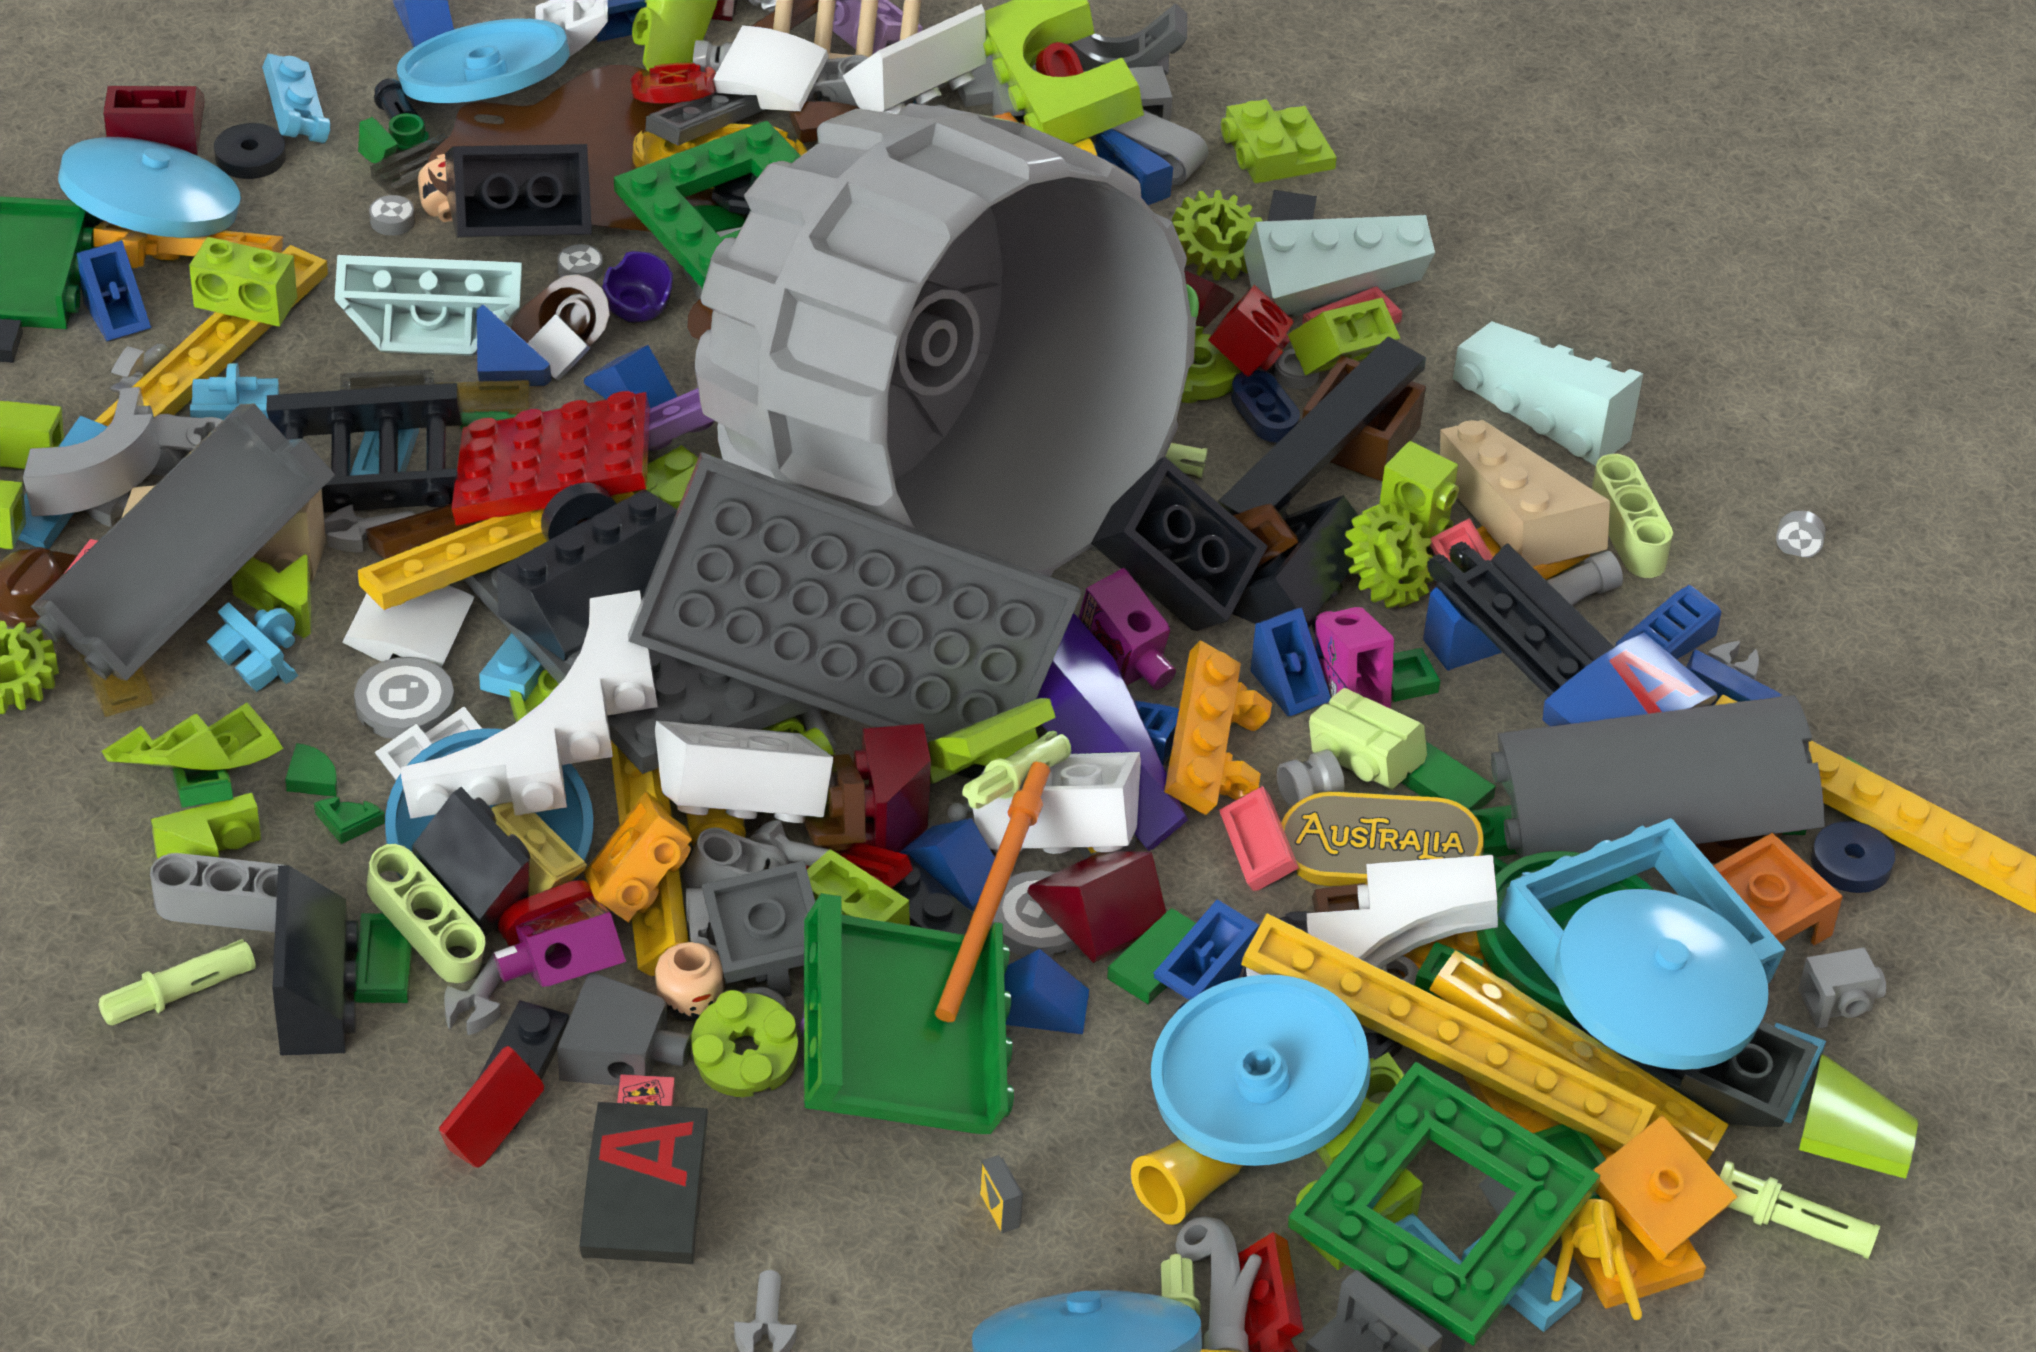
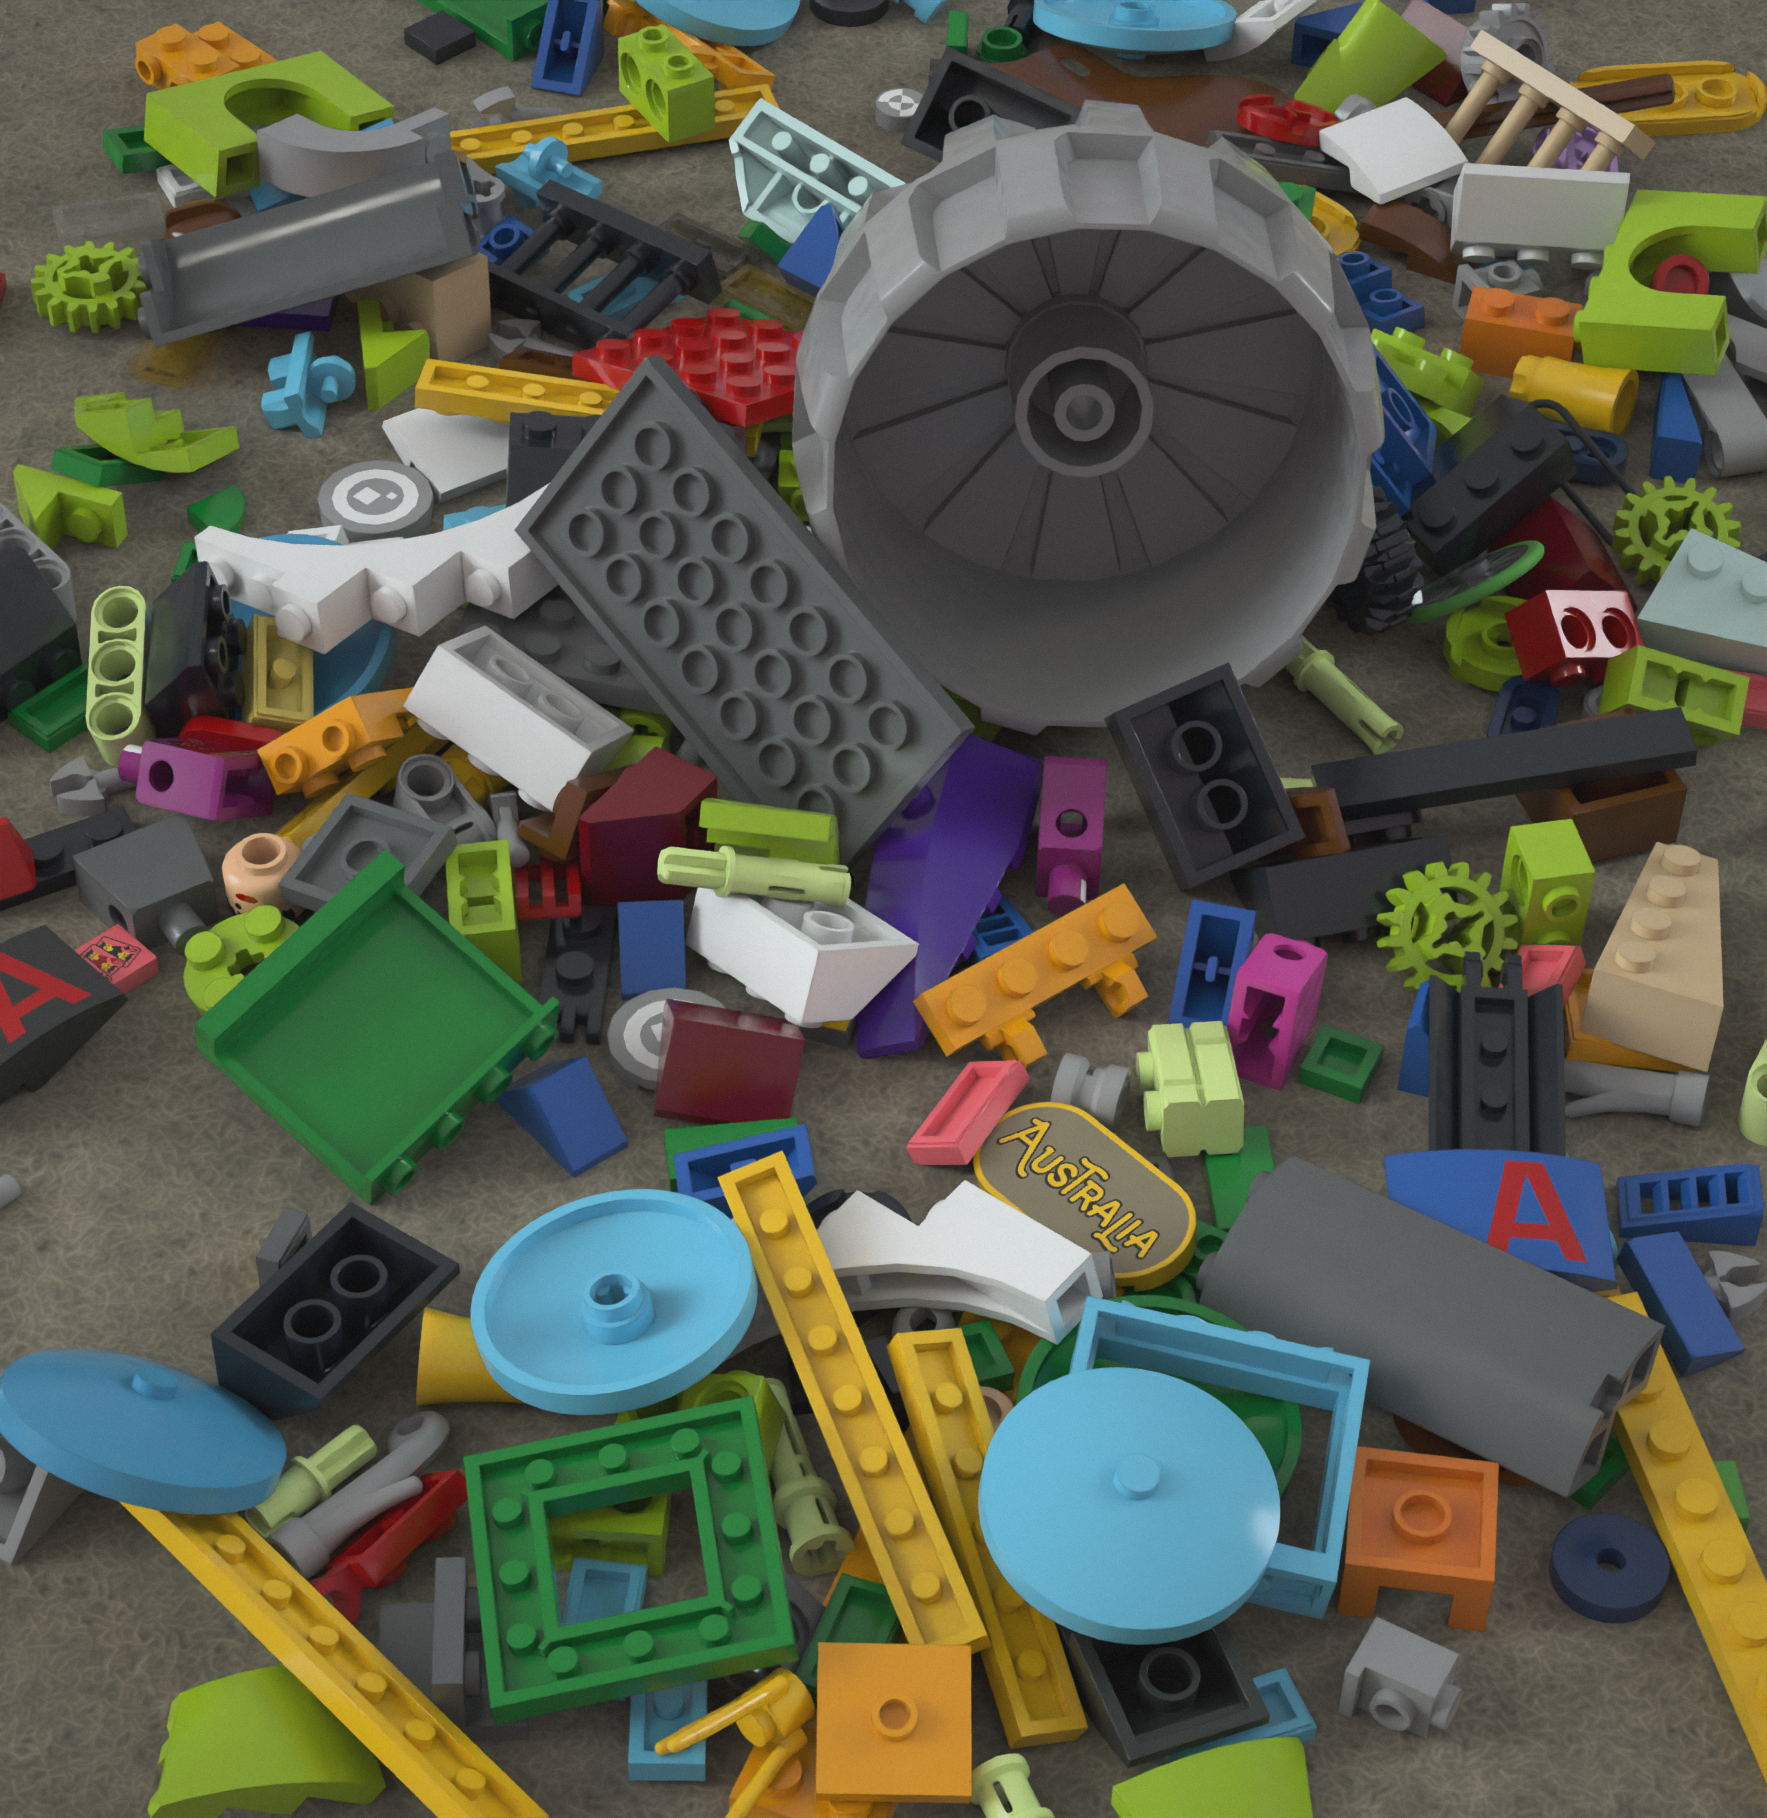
camera: 45 degrees right, 0 degrees up
(433, 358) = (765, 240): none -> green tile
(1022, 813) = (709, 915): orange bar -> none
(1095, 1202) = (327, 1313): none -> black slope

